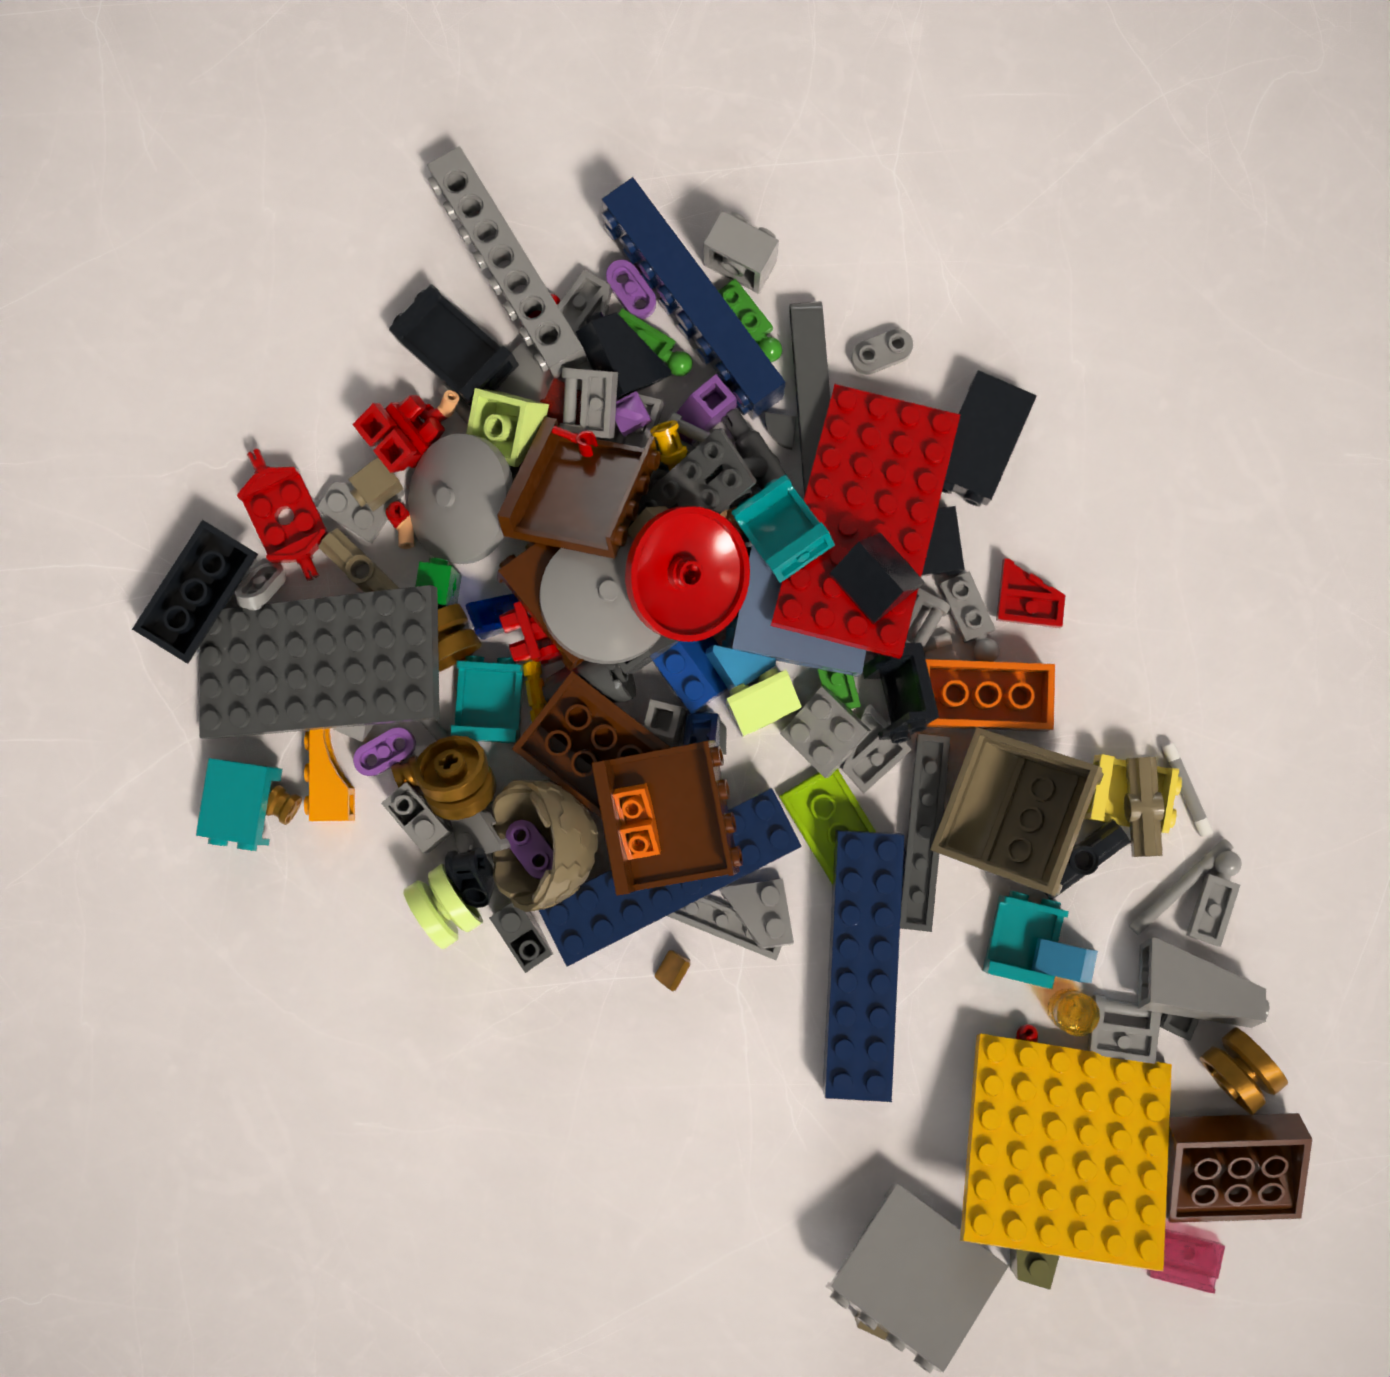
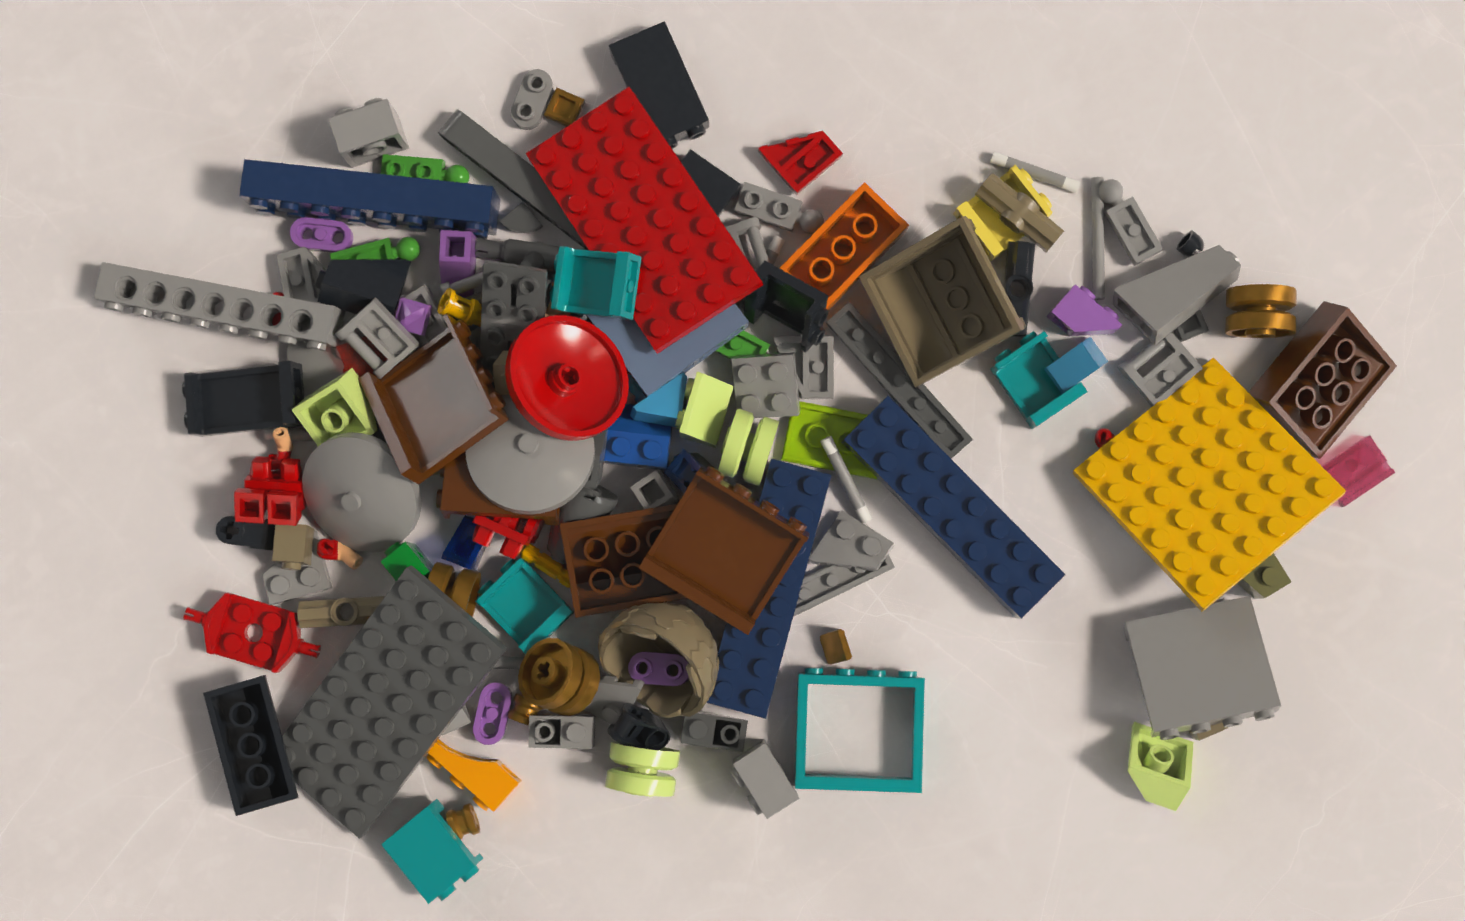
camera: 55 degrees left, 0 degrees up
(260, 586) = (289, 695): light grey plate -> none
(353, 445) = (250, 534): none -> black piece
(519, 1008) = (764, 779): none -> light grey brick
(583, 439) = (401, 365): red hand -> none
(585, 1086) = (851, 782): none -> teal window
(638, 821) = (708, 573): orange slope -> none
(764, 761) = (748, 447): none -> yellowish green wheel
(807, 1314) = (1160, 766): none -> yellowish green slope
(809, 860) = (846, 479): none -> light grey bar
(875, 577) = (690, 249): black slope -> none
(898, 381) = (564, 107): none -> pearl gold tile
(1073, 1012) = (1117, 391): clear yellow wheel -> none
(1107, 927) = (1081, 315): none -> medium lavender slope
(1244, 964) = (1190, 243): none -> black hinge

